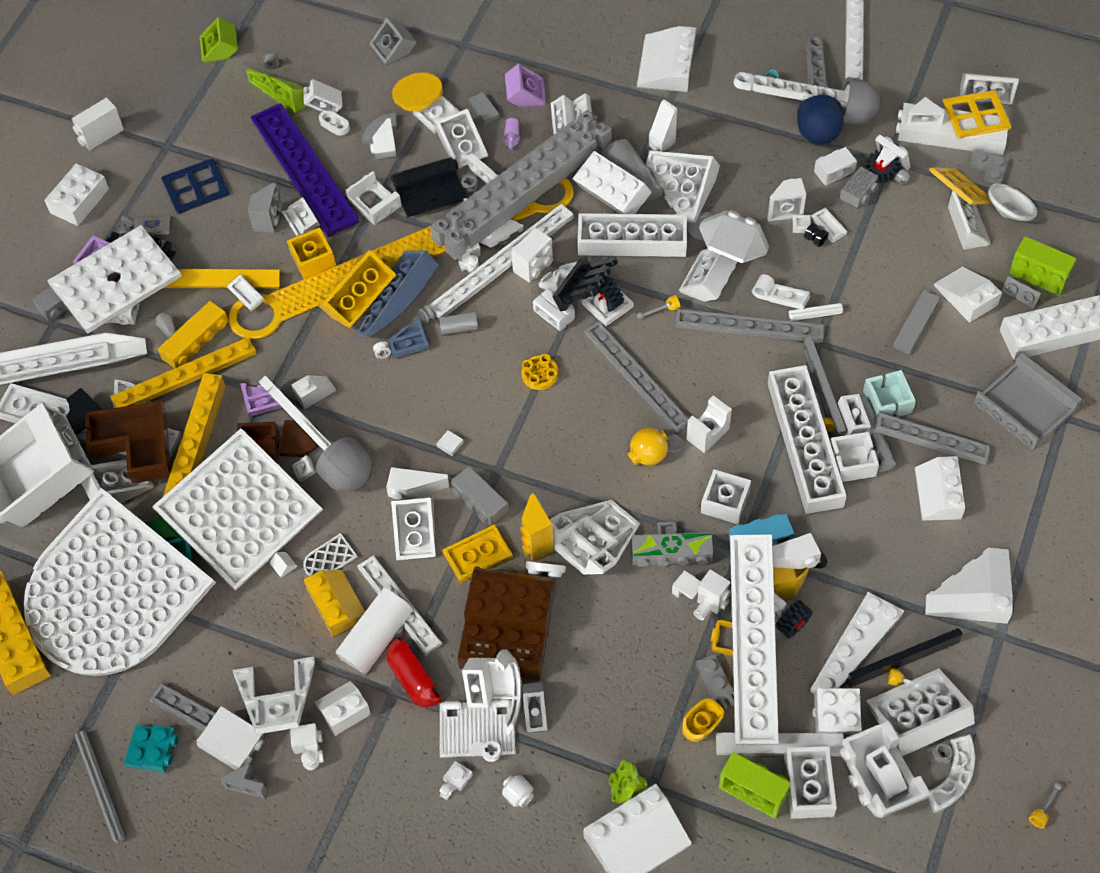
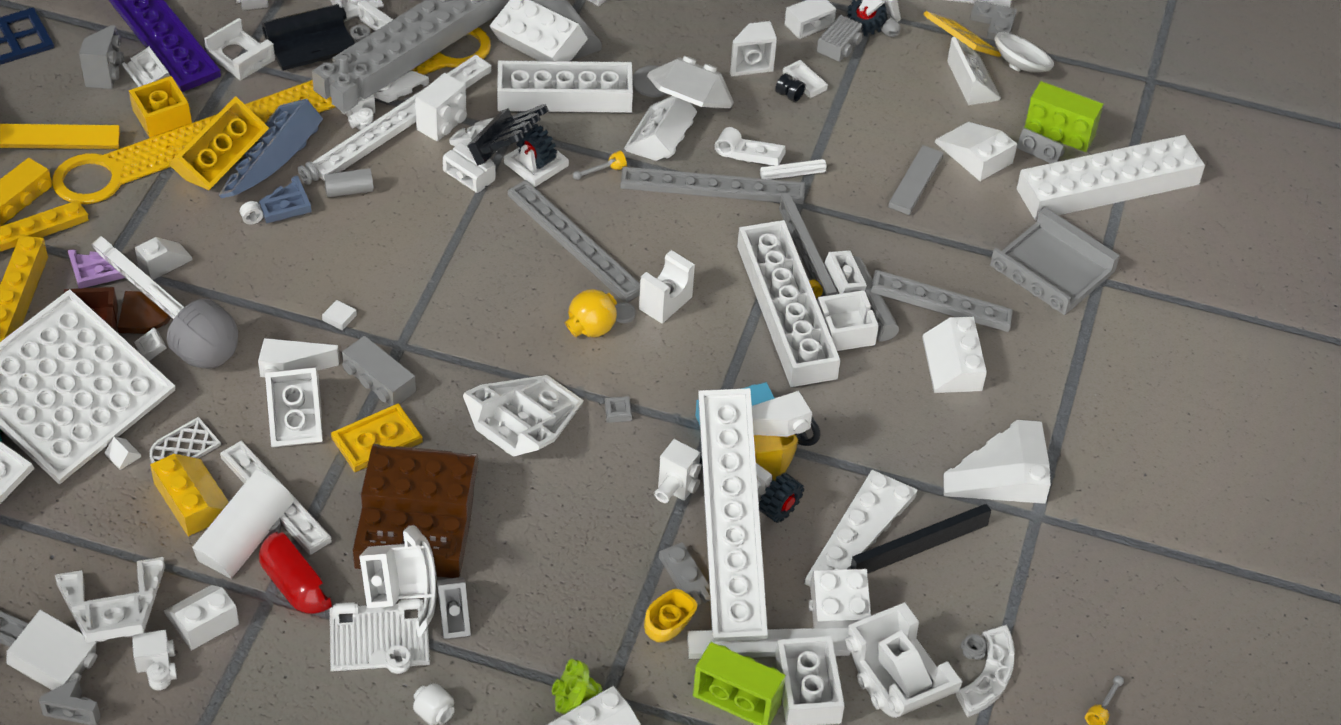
camera: 10 degrees left, 10 degrees down
(245, 293) = (75, 151): white tile -> none
(456, 778) = (351, 692): white plate -> none
(536, 531) = (453, 403): yellow slope -> none
(539, 372) = (452, 236): yellow tile -> none
(552, 569) = (466, 446): white tile -> none
(672, 549) = (624, 426): light grey brick -> none
(684, 180) = (627, 28): white slope -> none
(686, 584) = (644, 464): white panel -> none
(715, 637) = (683, 525): yellow piece -> none
(725, 496) = (690, 365): white brick -> none
(800, 223) = (770, 76): white tile -> none
(893, 397) = (895, 252): light aqua piece -> none
(896, 678) = (911, 564): yellow hinge -> none
(923, 714) = (949, 599): white slope -> none

